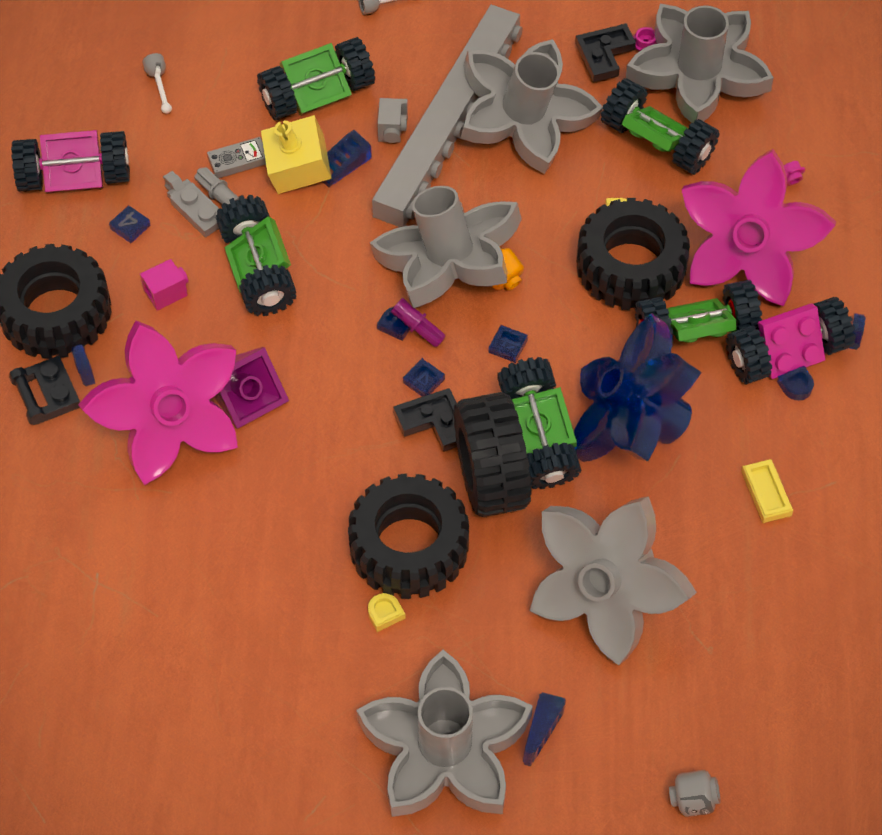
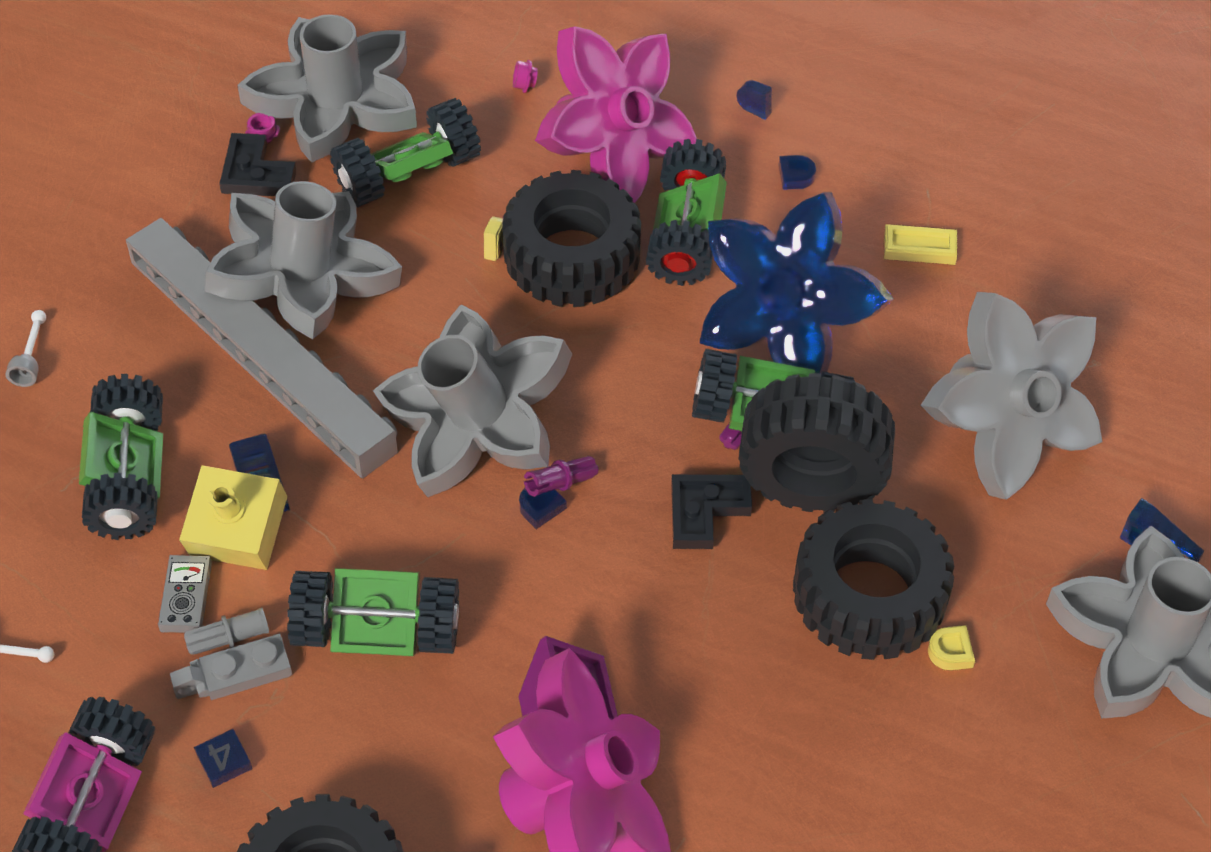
camera: 70 degrees left, 5 degrees down
(164, 284) = (356, 740): dark pink brick -> none
(392, 119) = (233, 404): light grey brick -> none
(423, 378) = (636, 502): clear blue tile -> none
(508, 343) = (625, 403): clear blue tile -> none
(790, 340) = (758, 179): plate -> none

